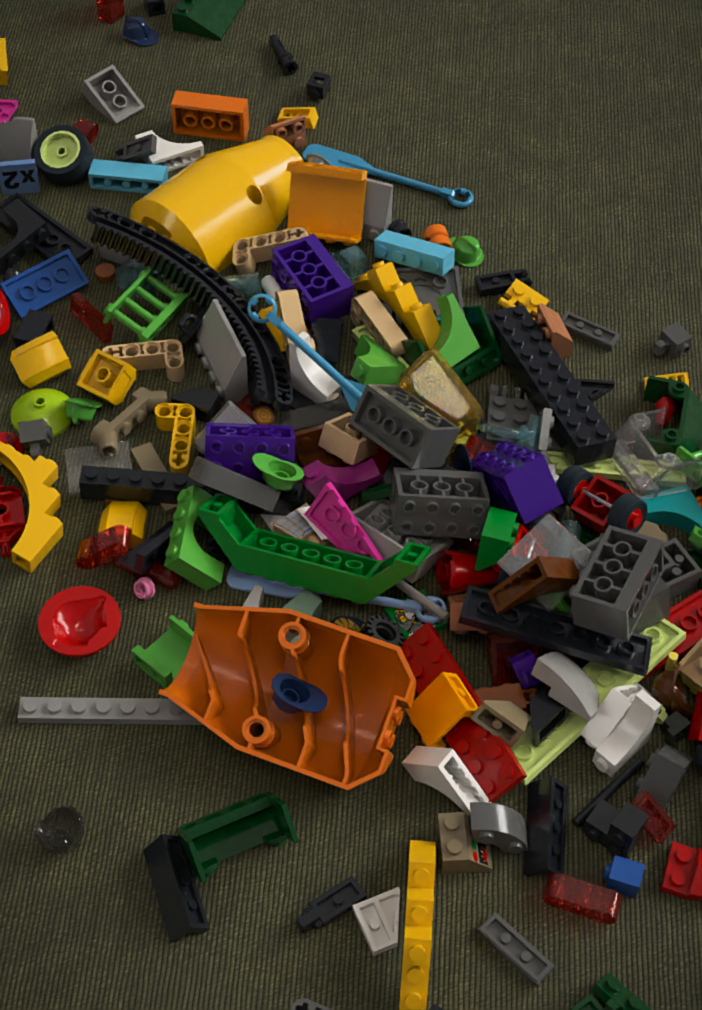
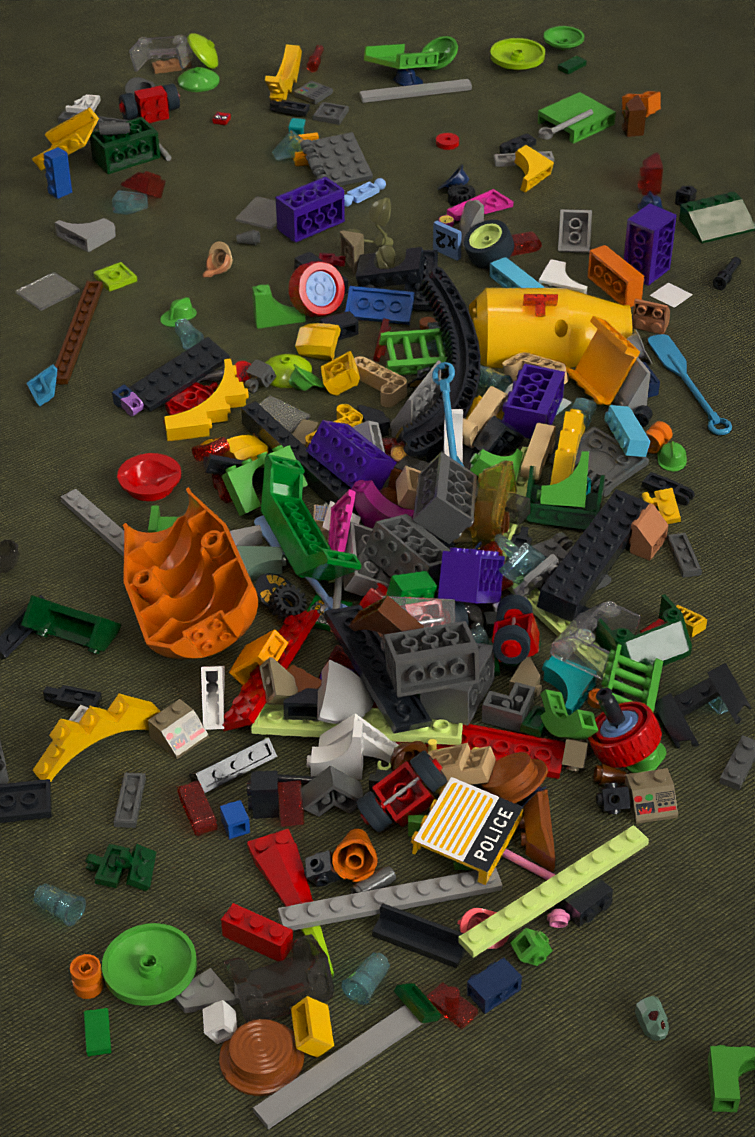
camera: 50 degrees right, 10 degrees down
(108, 434) = (299, 401): dark tan plate -> none
(137, 149) = (538, 266): dark grey hinge -> none
(144, 588) = (206, 487): bright pink plate -> none
(210, 59) = (650, 242): none -> dark purple brick
(222, 180) = (540, 302): none -> clear red tile
(234, 484) = (312, 465): dark grey beam -> none
(263, 104) = (671, 295): none -> white sticker
(276, 472) = (341, 469): bright green piece -> none
(295, 695) = (185, 577): dark blue piece -> none
(309, 112) = (683, 316): yellow slope -> none
(317, 90) = (721, 303): black brick -> none
(498, 826) = (202, 733): dark grey brick -> none
(595, 388) = (627, 585): black tile -> none
(674, 341) = (731, 598): dark grey brick -> none

